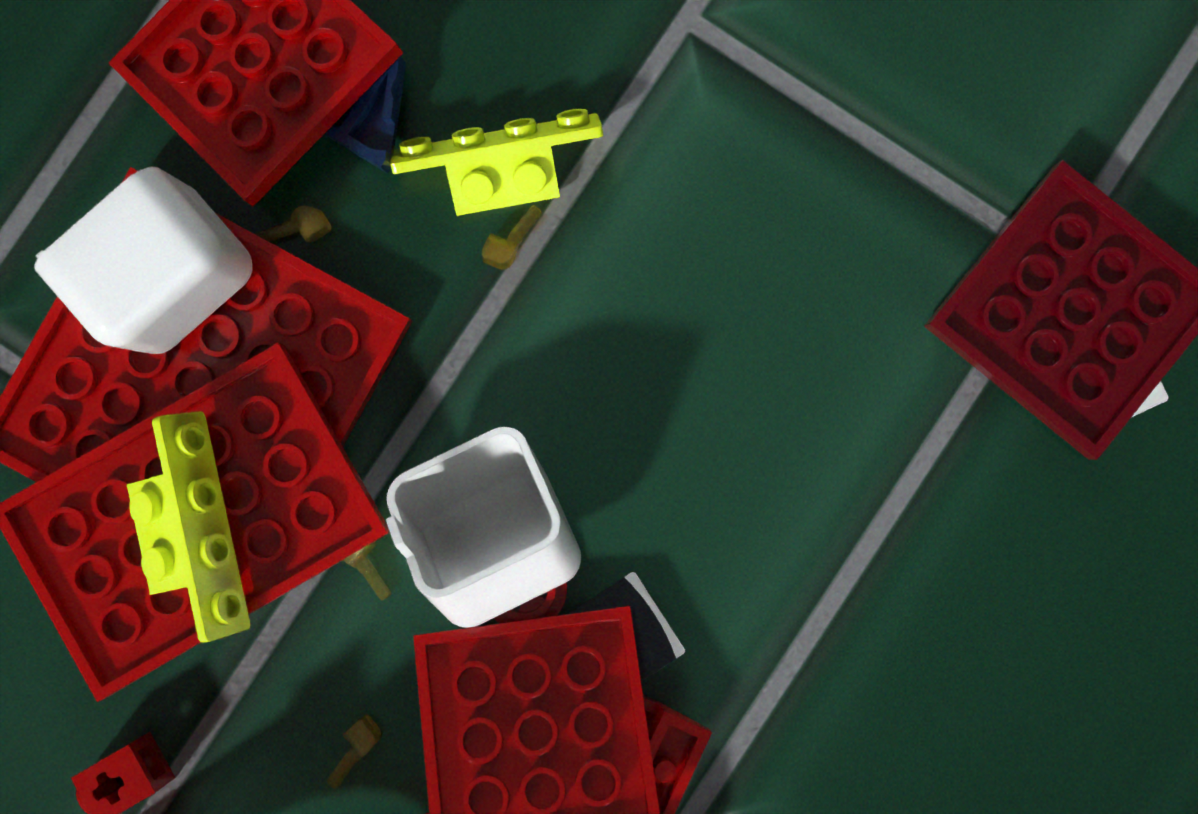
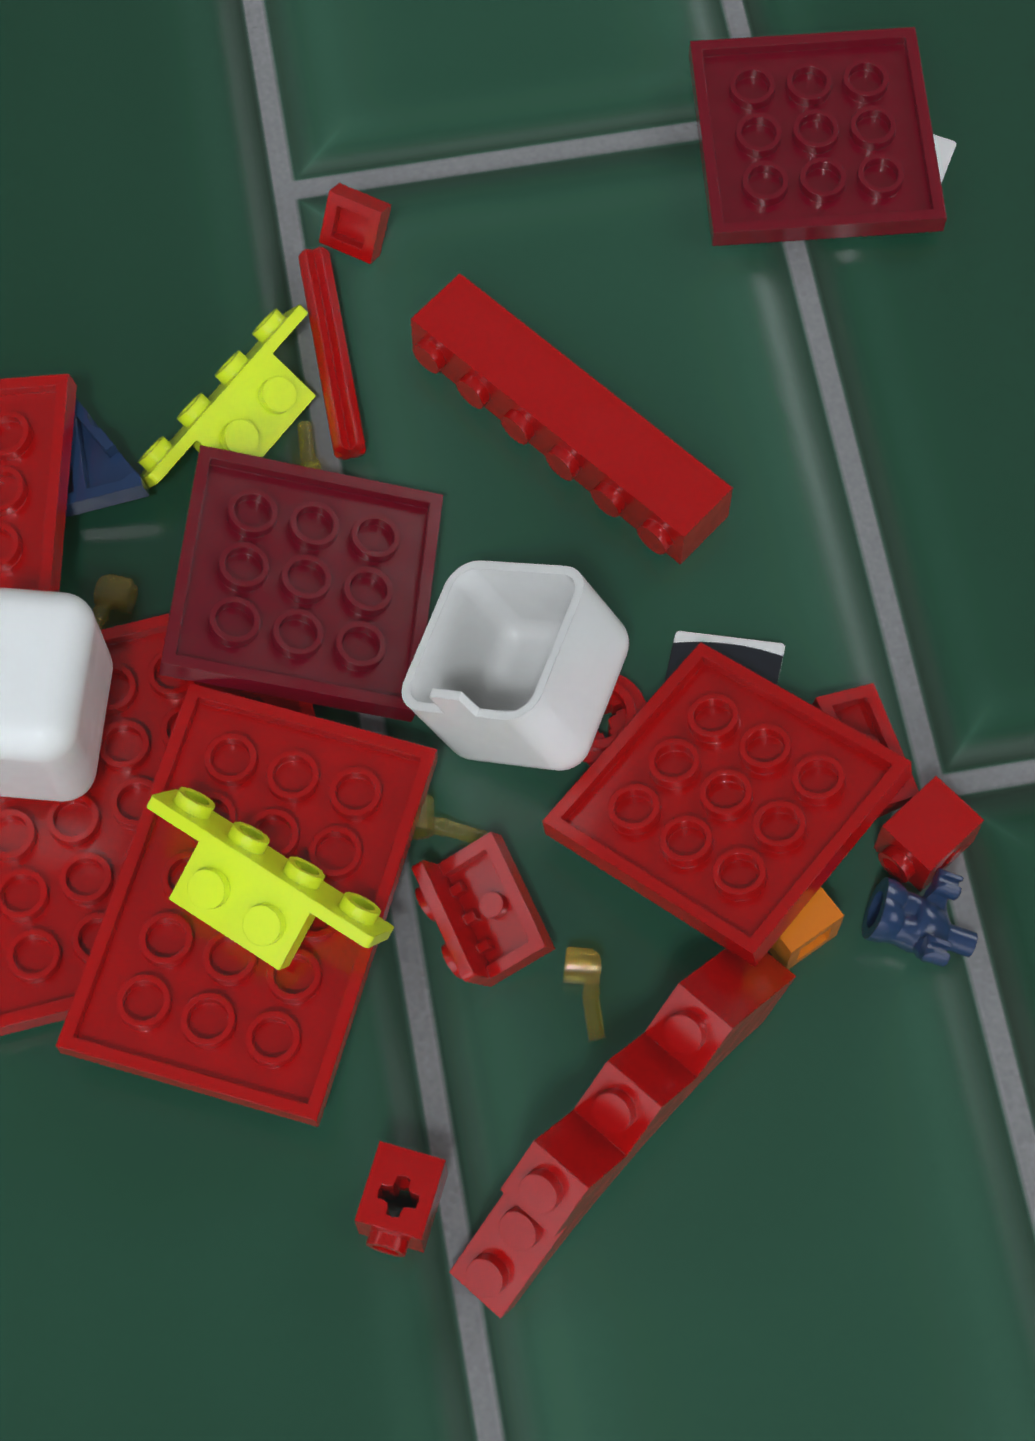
camera: 45 degrees left, 20 degrees down
(330, 649) = (482, 912): none -> red bracket
(416, 332) = (301, 583): none -> dark red piece
(600, 172) = (332, 354): none -> red axle
(702, 91) = (354, 223): none -> red tile
(702, 367) = (570, 419): none -> red brick

